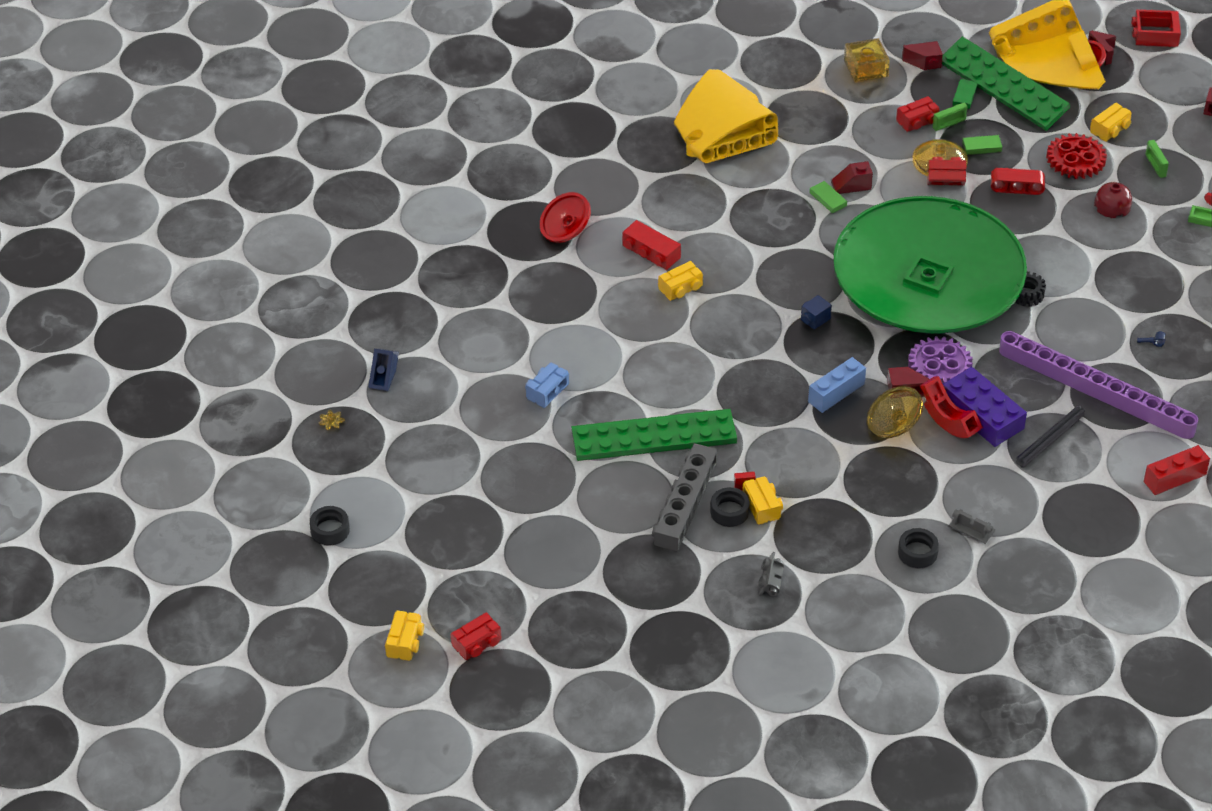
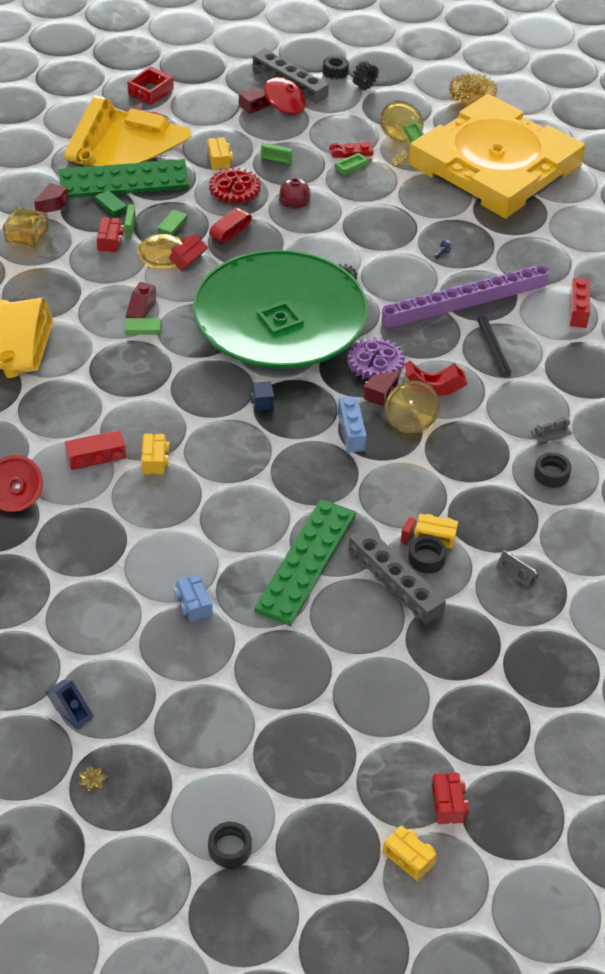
camera: 60 degrees left, 0 degrees up
(996, 411) = (438, 355): dark purple brick -> none

